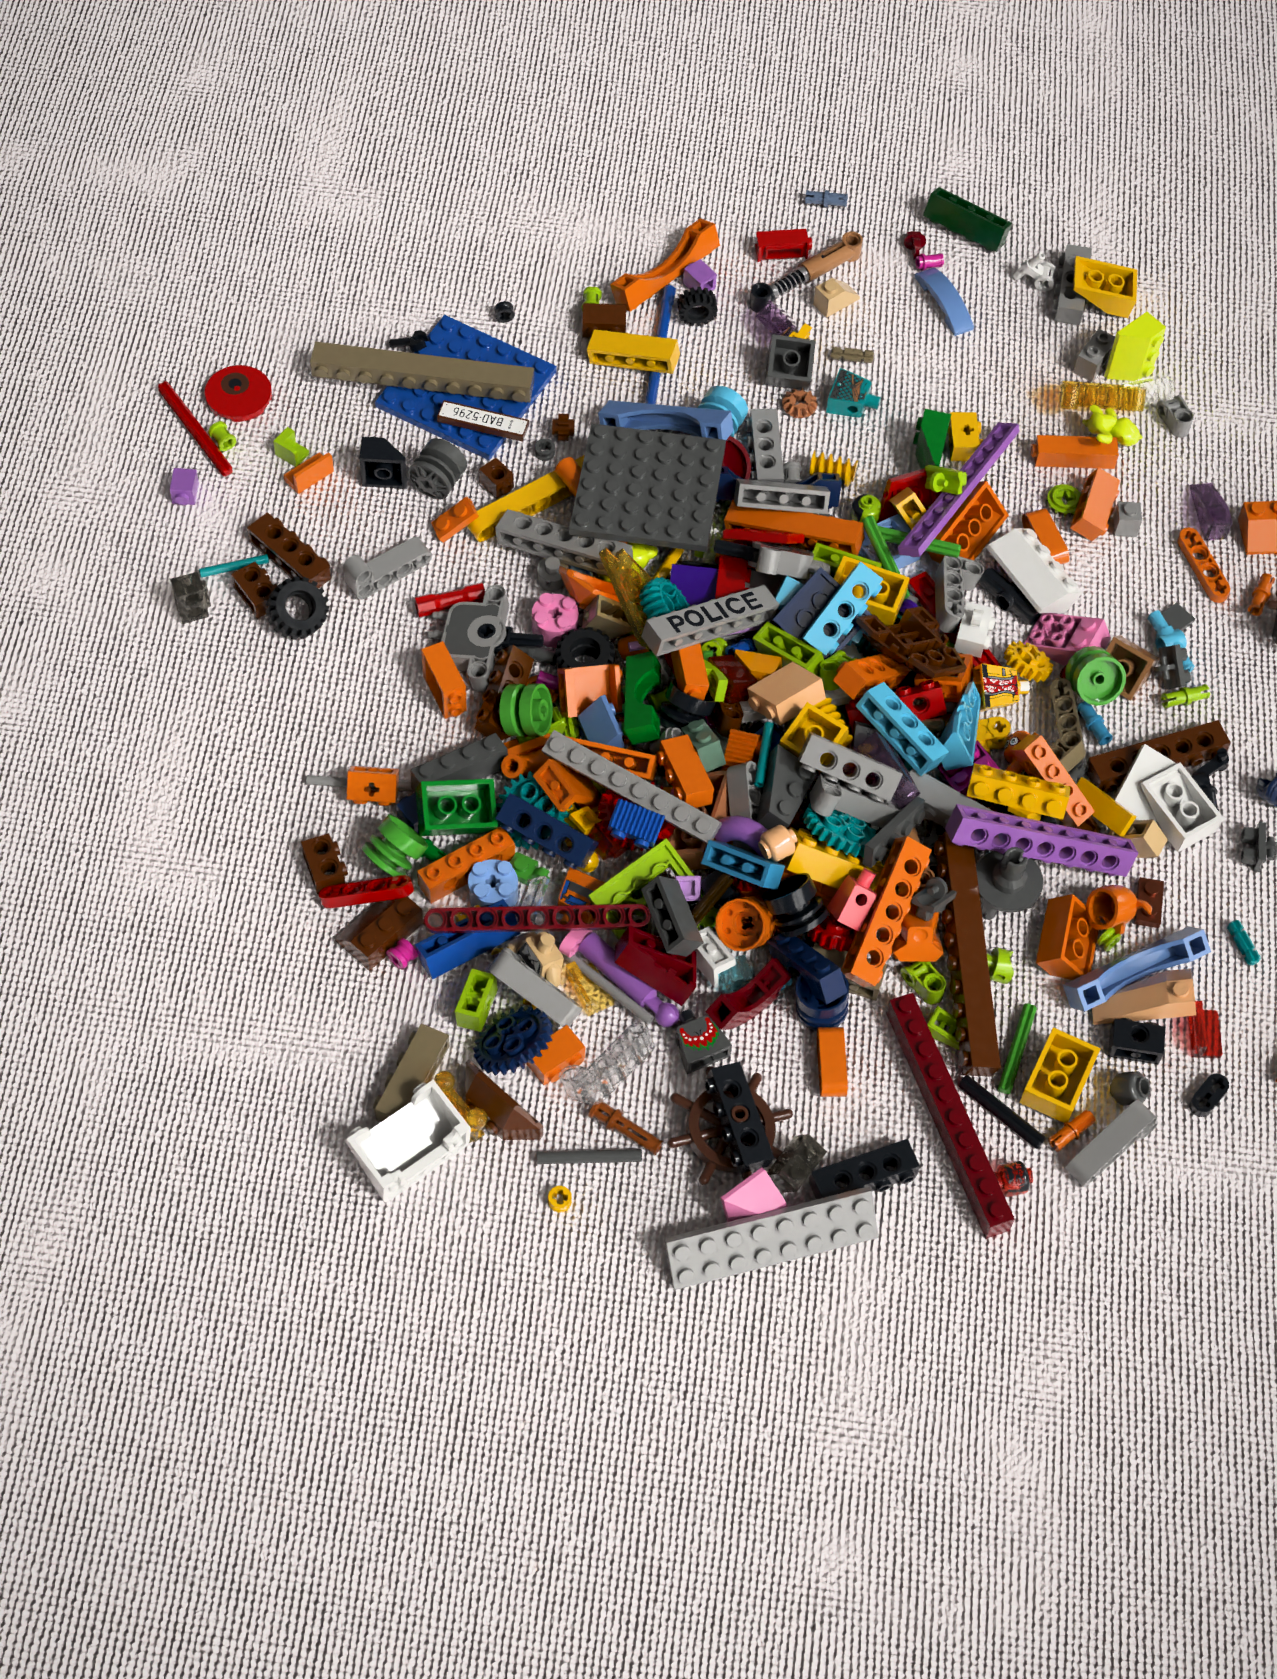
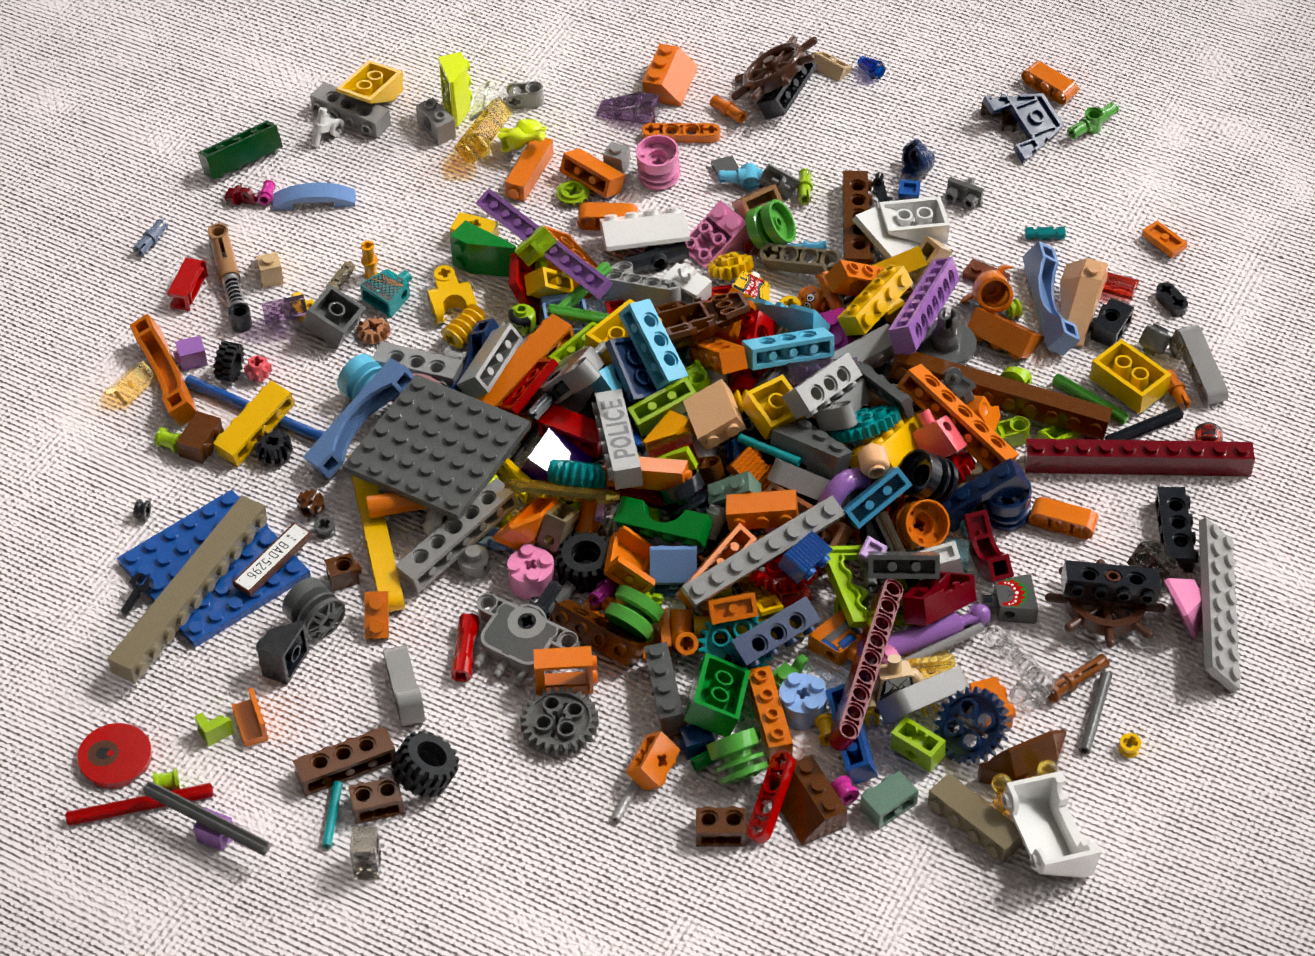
camera: 65 degrees left, 10 degrees down
(181, 472) = (207, 818): none -> dark grey axle
(394, 698) = (539, 715): none -> dark grey gear
(406, 995) = (888, 799): none -> sand green brick
(616, 378) = (273, 448): none -> black gear
(644, 251) = (132, 382): none -> clear yellow panel
(705, 333) = (258, 368): none -> coral gear
(872, 443) = (448, 293): none -> yellow piece
(875, 363) = (369, 259): none -> light orange pin
(1137, 553) = (658, 162): none -> bright pink wheel
(1234, 793) = (909, 189): none -> blue plate

